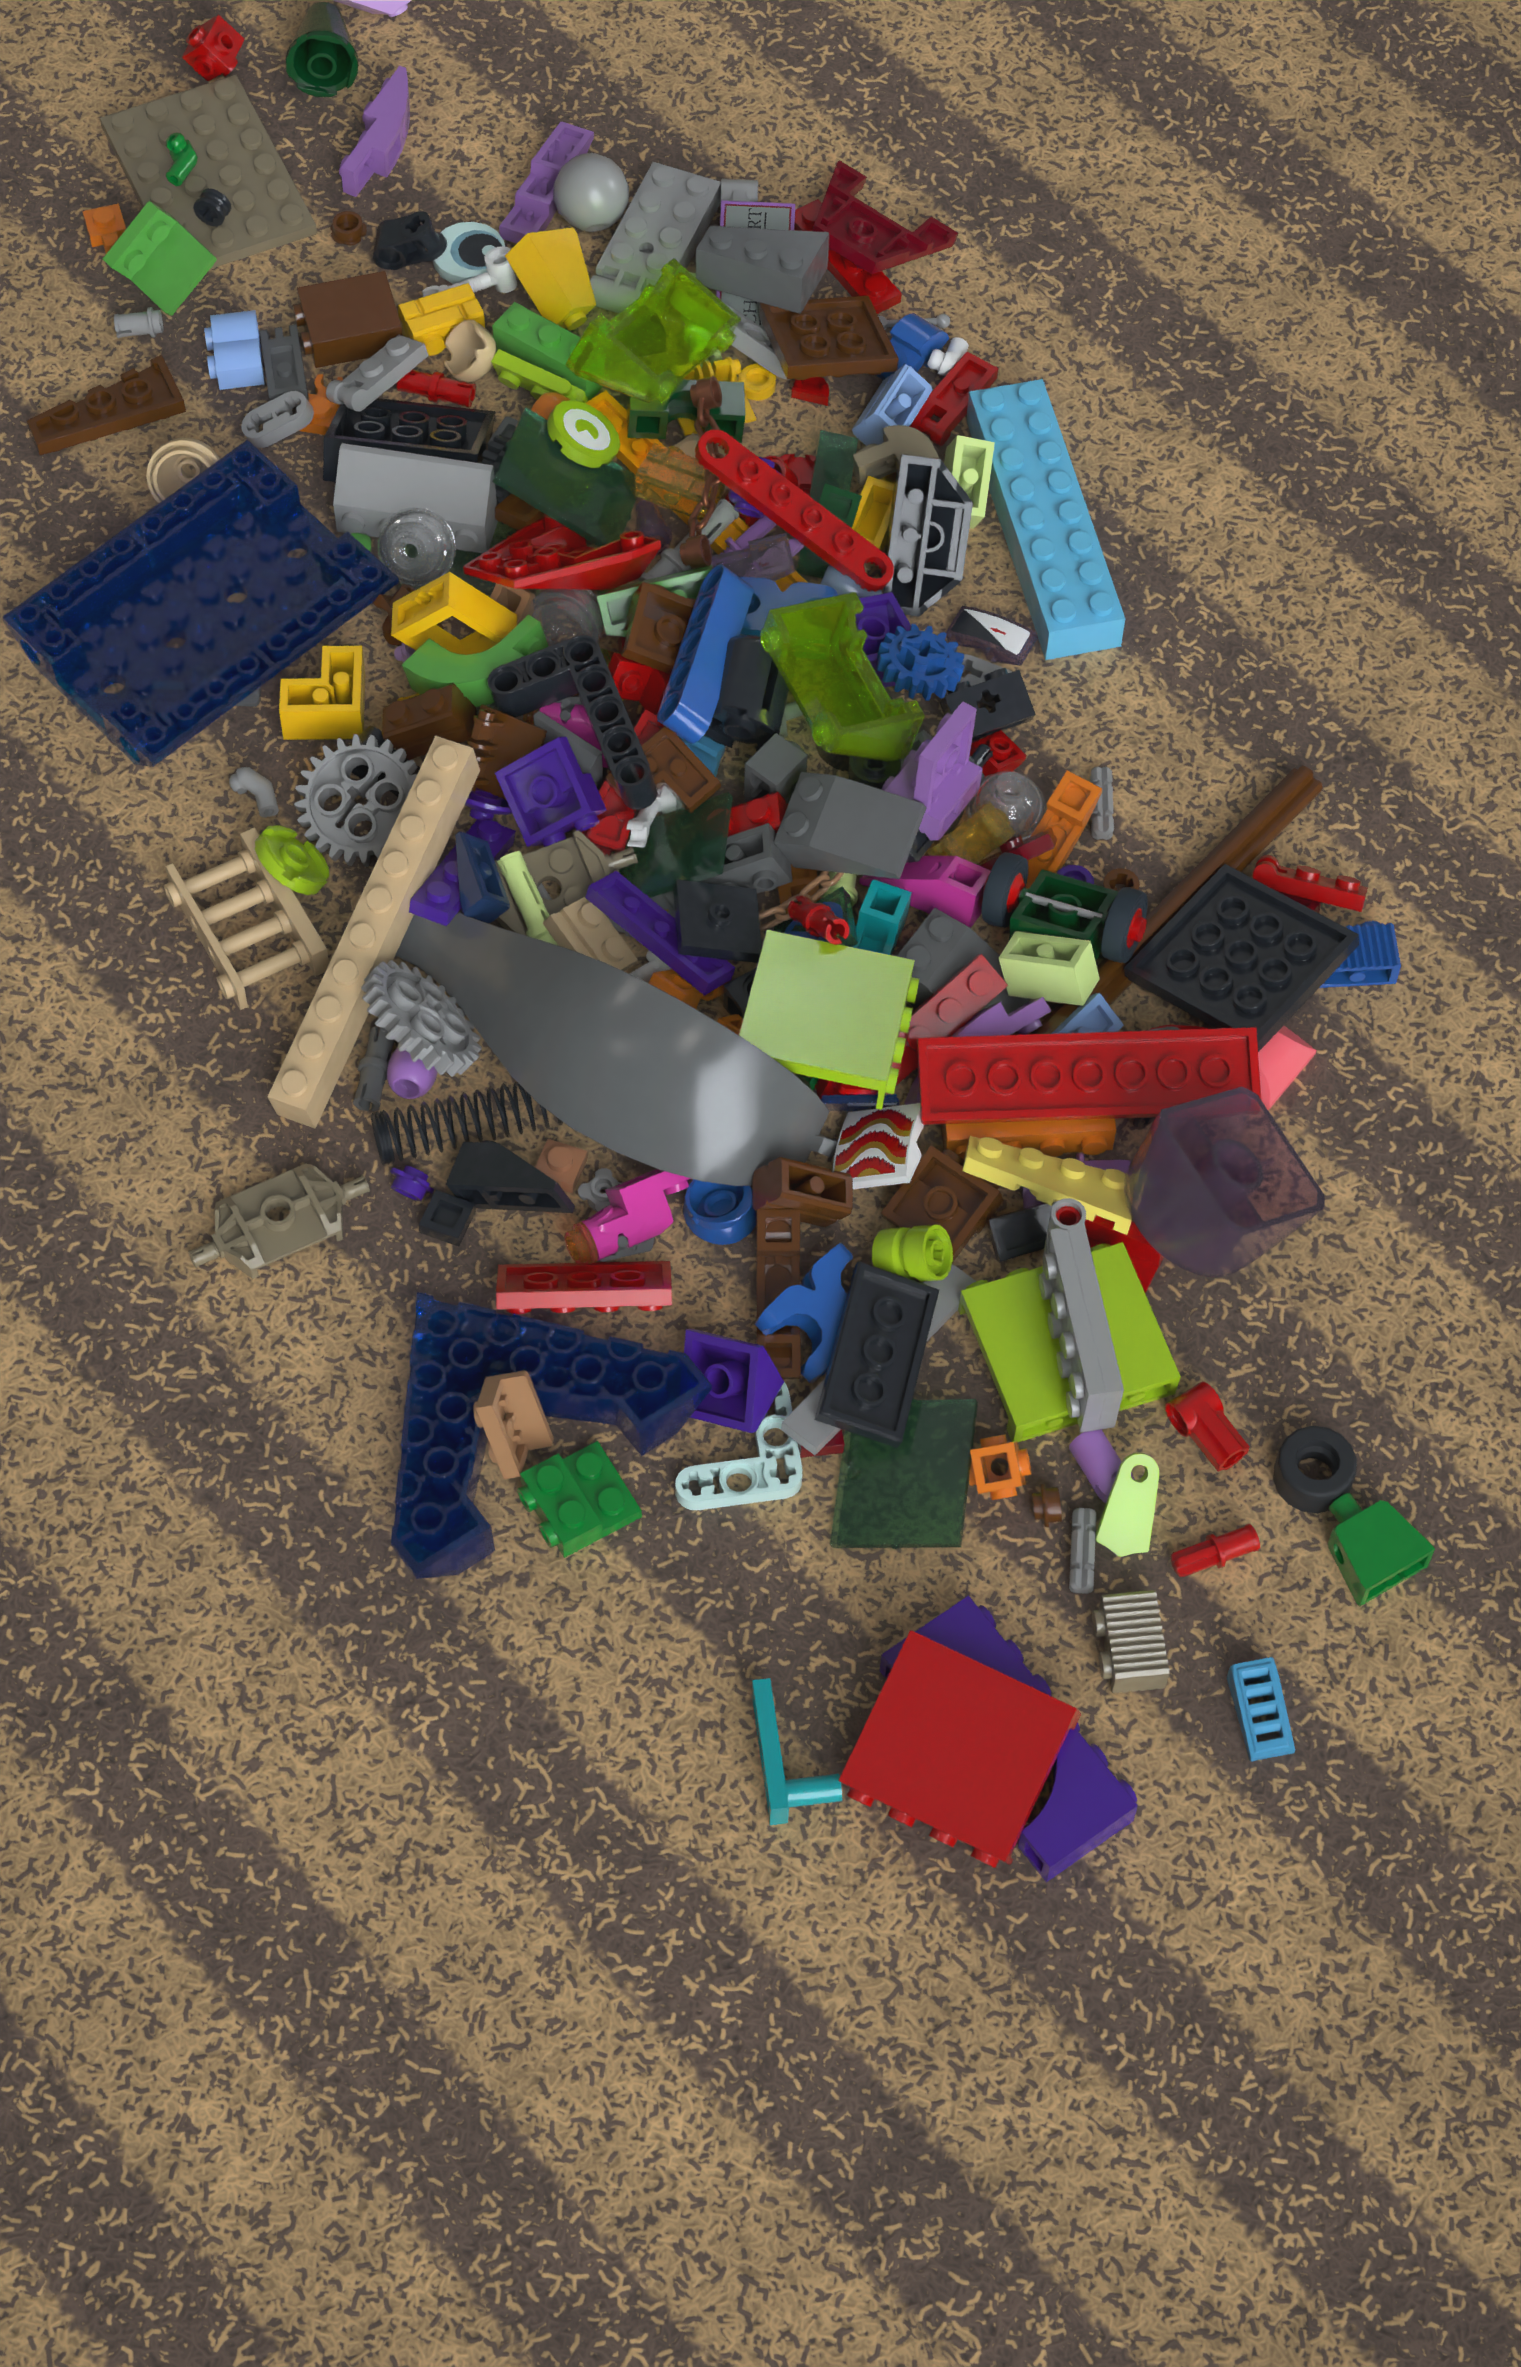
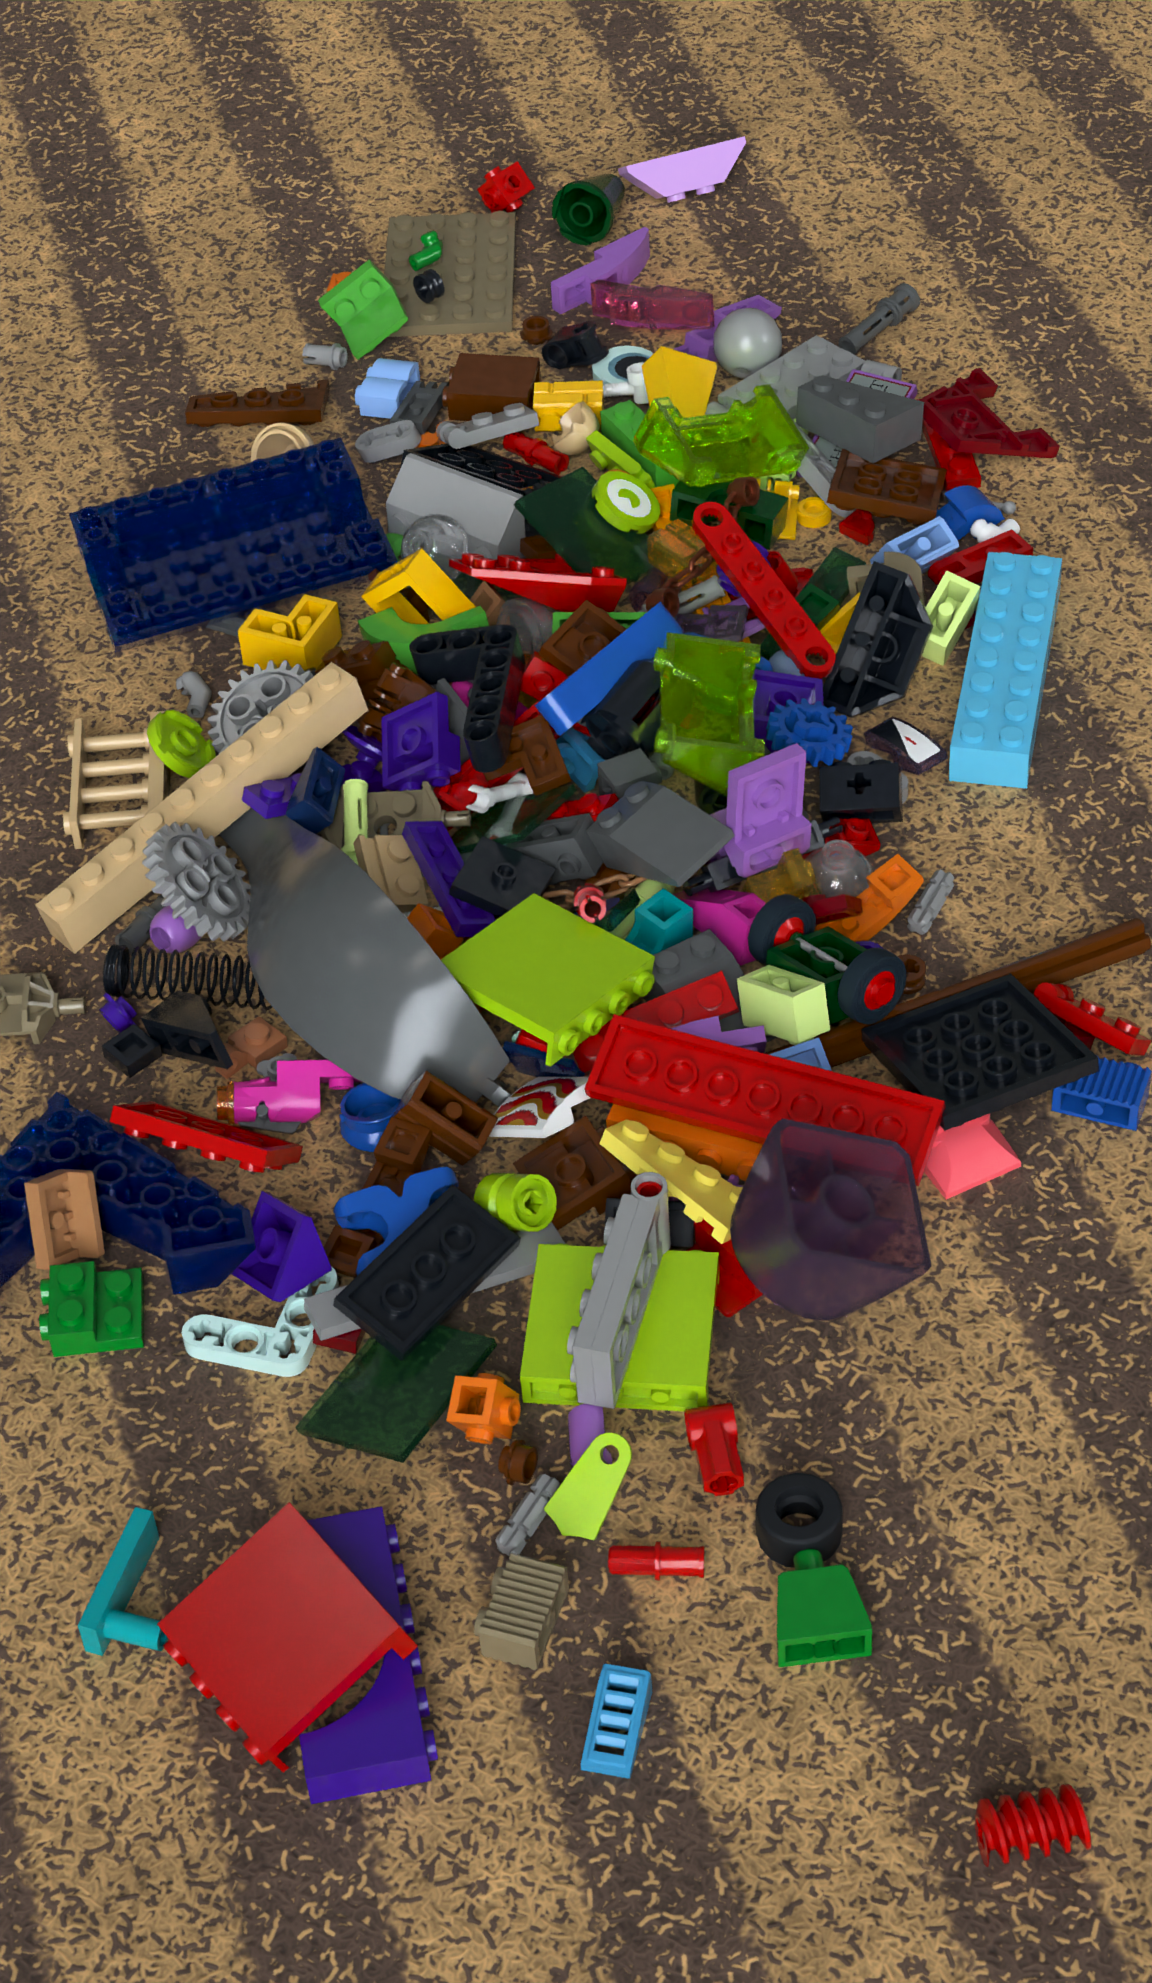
camera: 30 degrees right, 15 degrees down
(462, 173) = (652, 308): none -> clear pink slope
(703, 108) = (856, 339): none -> dark grey pin

